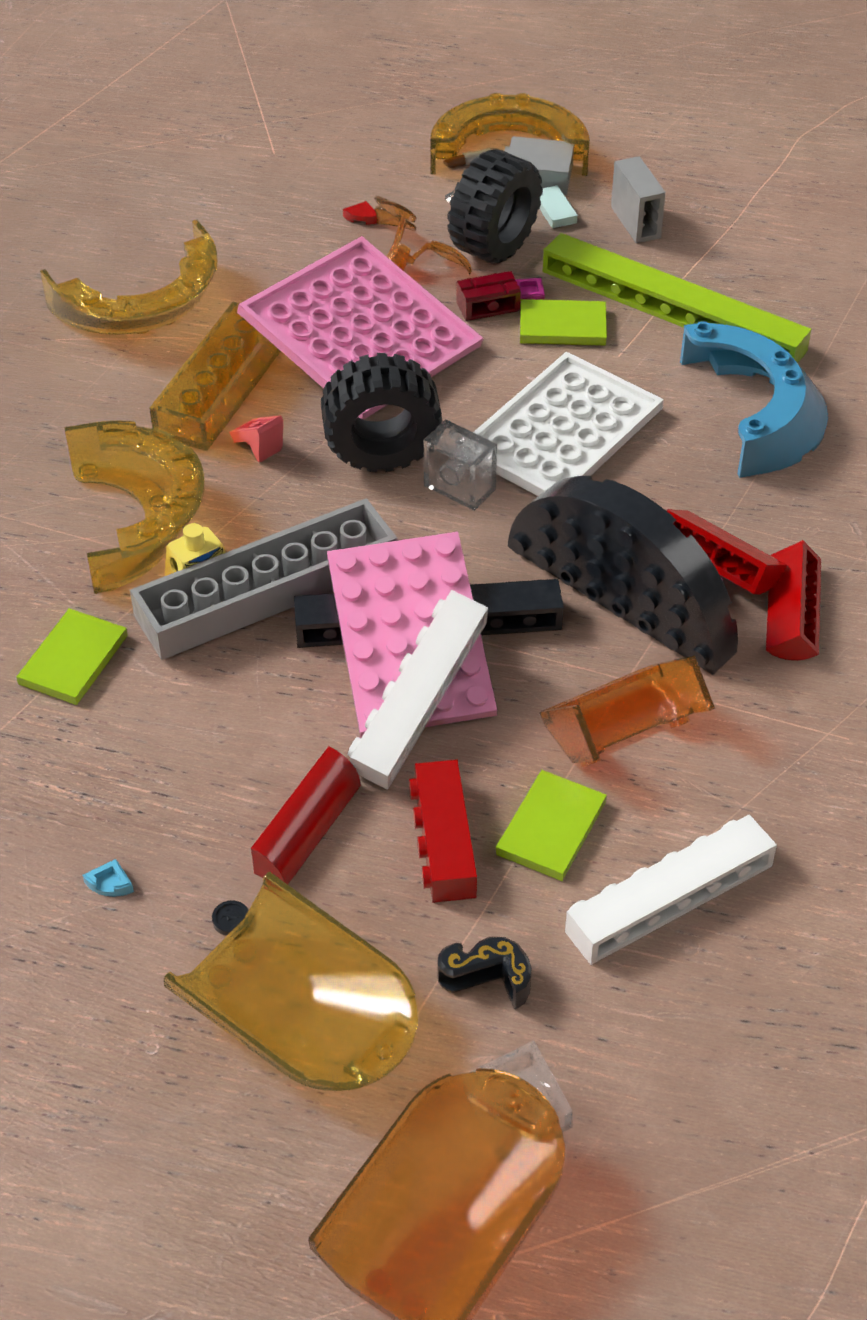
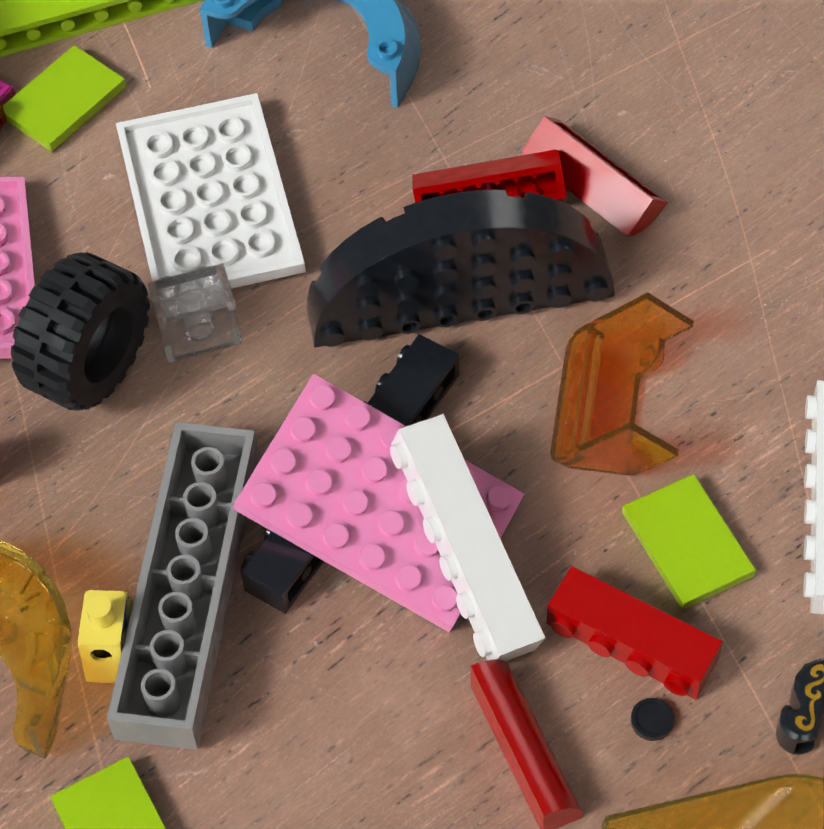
camera: 50 degrees left, 10 degrees up
(393, 884) = (652, 719): none -> black piece

